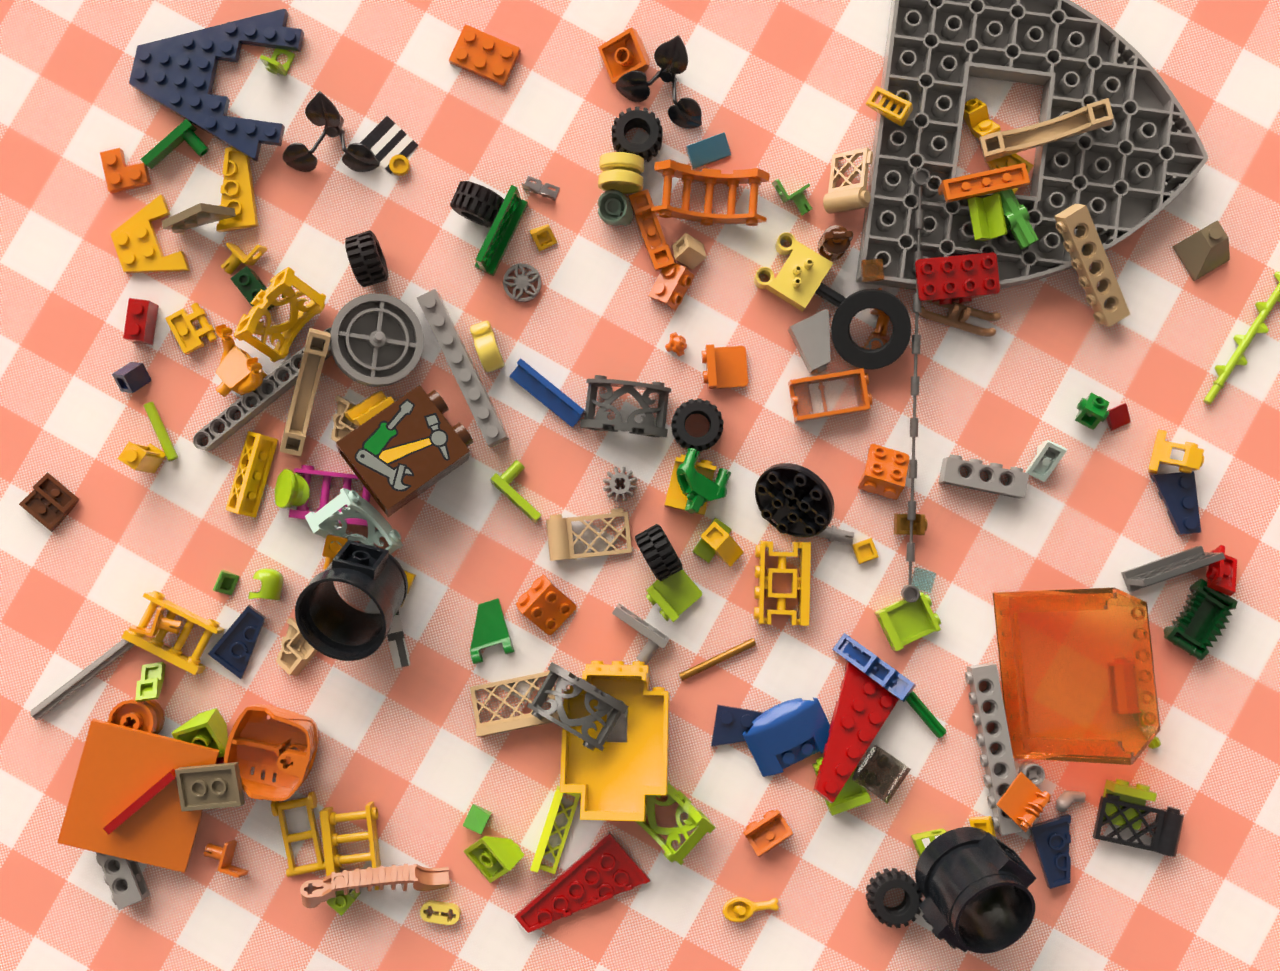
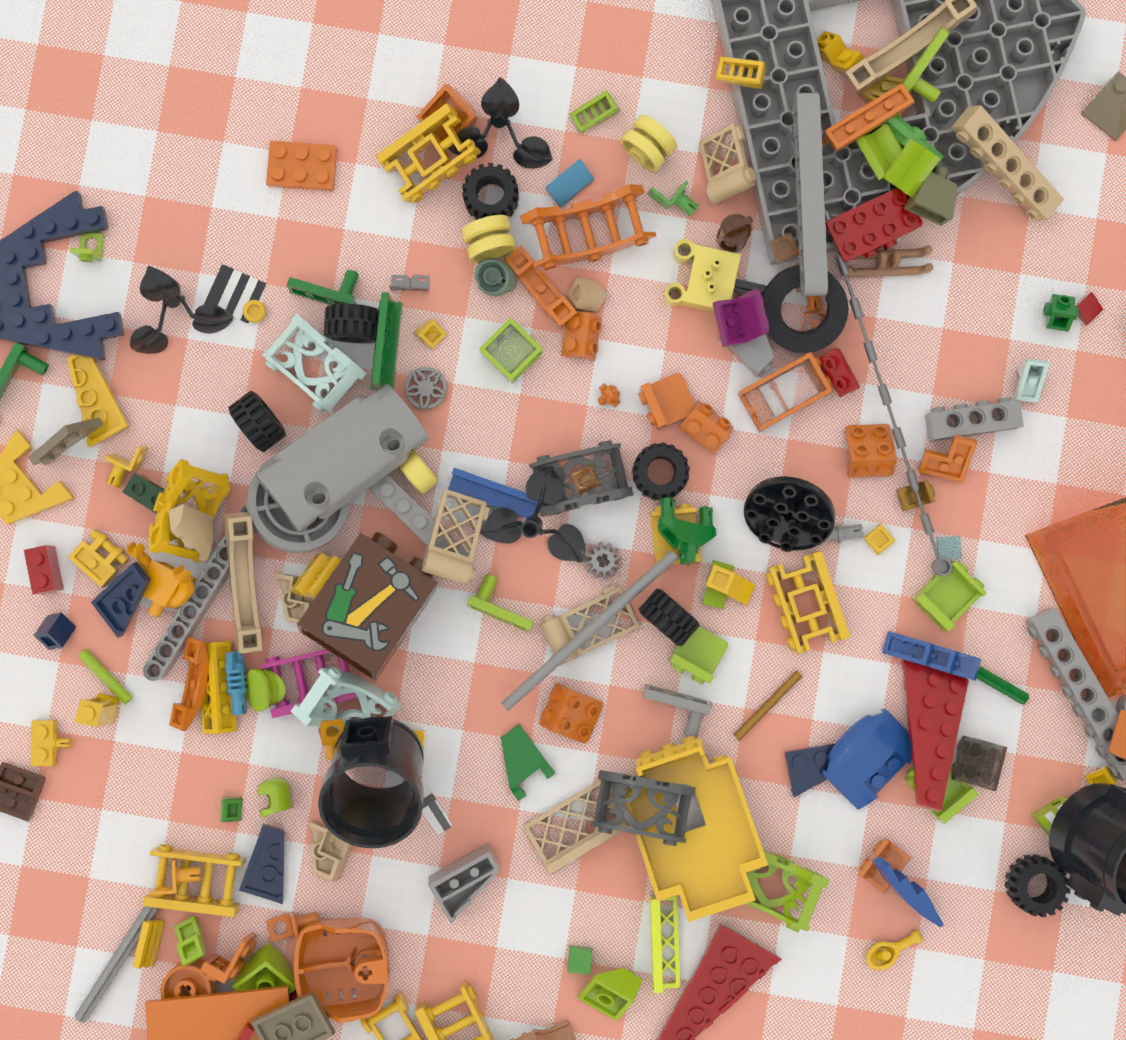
camera: 20 degrees left, 0 degrees up
(90, 469) = (46, 742): none -> yellow plate
(115, 671) = (148, 943): none -> yellow tile
(169, 716) = (222, 969): none -> orange bracket
(198, 369) = (121, 598): none -> dark blue wing
(234, 465) = (195, 685): none -> orange slope
(244, 699) = (293, 925): none -> orange bracket
(269, 475) = (236, 681): none -> dark azure hinge
(278, 330) = (193, 529): none -> tan slope
(400, 714) = (463, 880): none -> light grey wedge
(427, 314) = (342, 457): none -> light grey panel
(457, 245) = (346, 370): none -> light aqua fence
(463, 171) = (324, 294): none -> green piece
(488, 439) = (452, 564): none -> tan piece
(586, 539) = (587, 632): none -> light grey piece
(589, 67) = (416, 141): none -> yellow fence
(593, 403) = (544, 487): none -> black plant
(606, 275) = (511, 350): none -> piece
(629, 408) = (585, 479): none -> clear orange tile
(751, 90) = (598, 118): none -> lime slope
(751, 401) = (707, 427): none -> orange bracket
(782, 864) = (909, 892): none -> blue slope
(788, 139) = (648, 143): none -> light yellow wheel
(812, 318) = (741, 318): none -> magenta bracket
(882, 394) = (839, 372): none -> red bracket
(910, 230) = (810, 194): none -> light grey beam
(953, 508) = (950, 465): none -> orange plate
(1006, 238) = (911, 167): none -> lime panel
(1017, 271) = (934, 198): none -> olive torso
(1036, 166) = (913, 79): none -> lime piece

